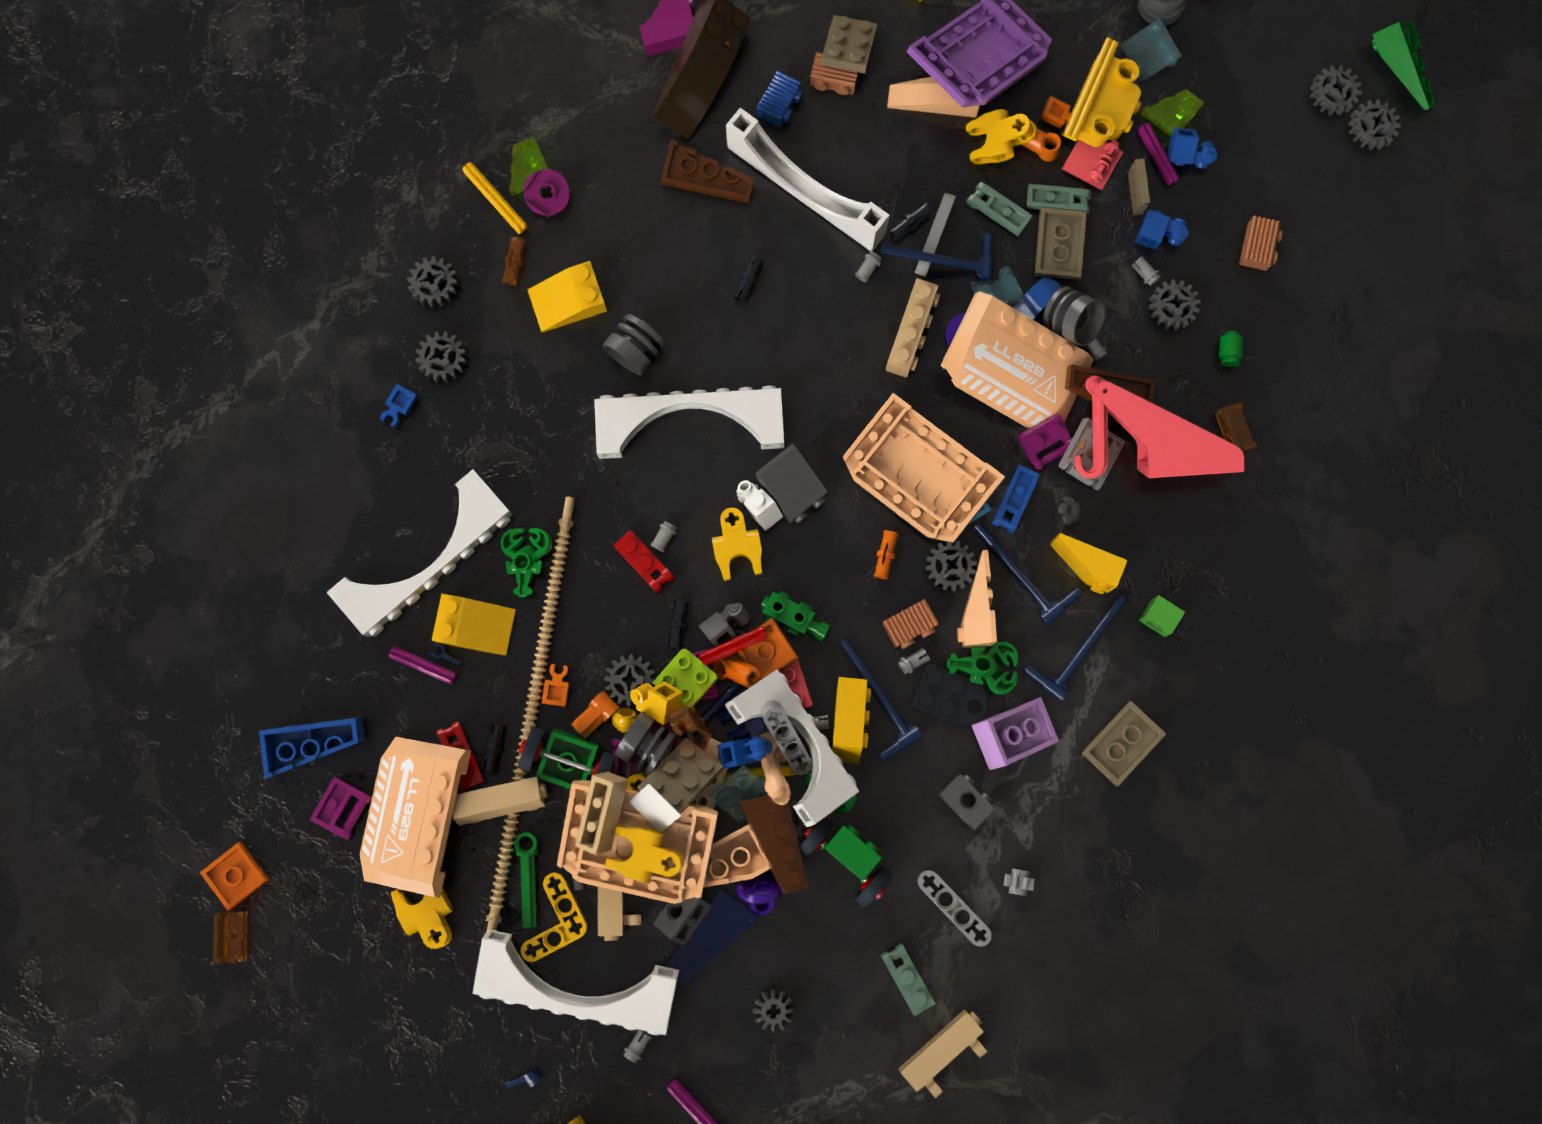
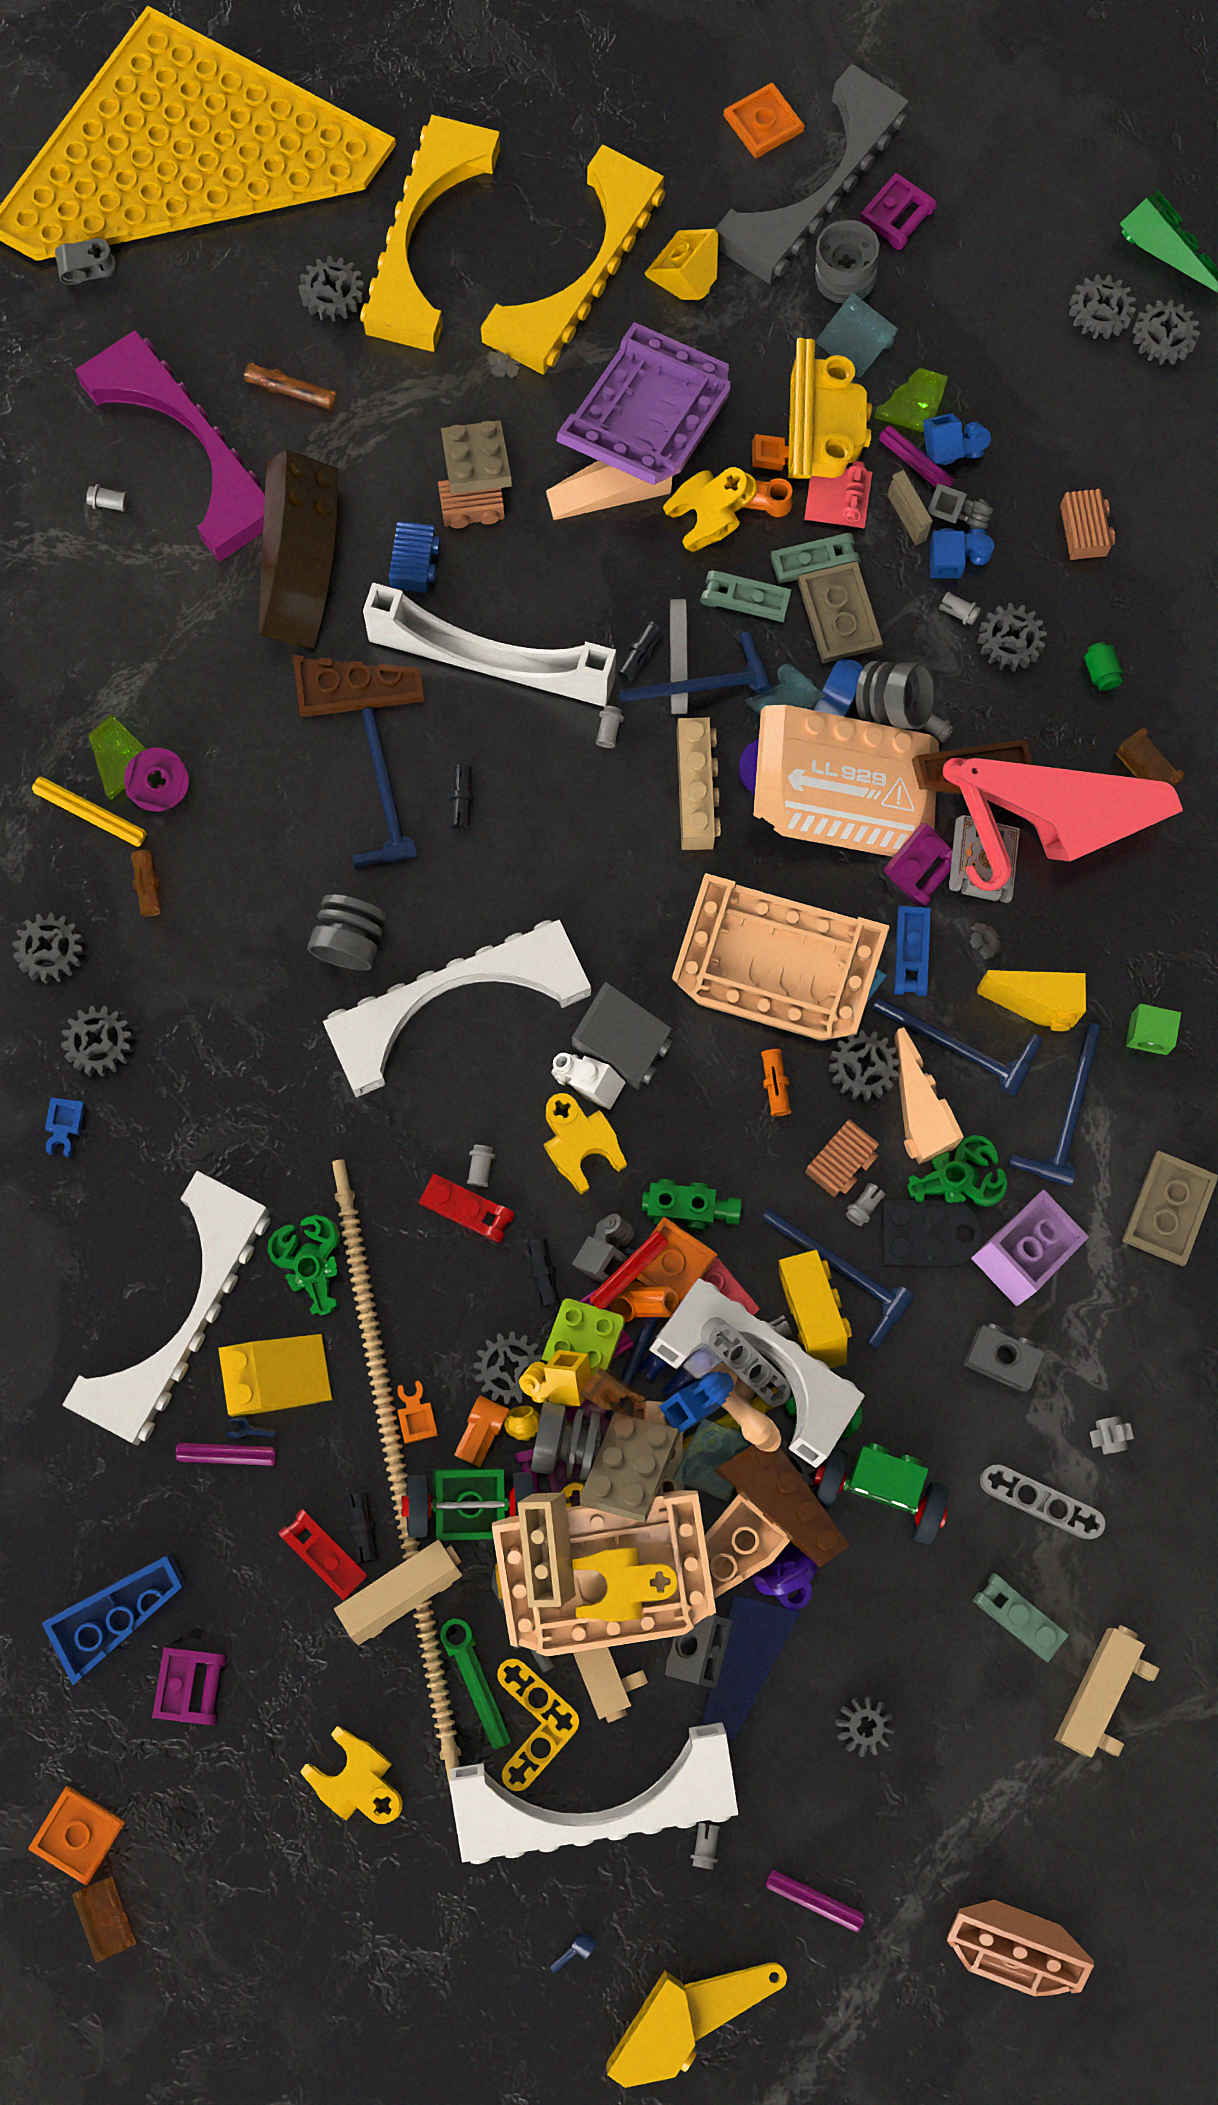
camera: 25 degrees left, 5 degrees down
(412, 815) = (290, 1656): light nougat slope -> none
(567, 297) = (235, 904): yellow slope -> none
(654, 808) = (613, 1516): white sticker -> none
(692, 297) = (399, 846): none -> dark blue bar
(1170, 196) = (952, 505): none -> dark grey brick

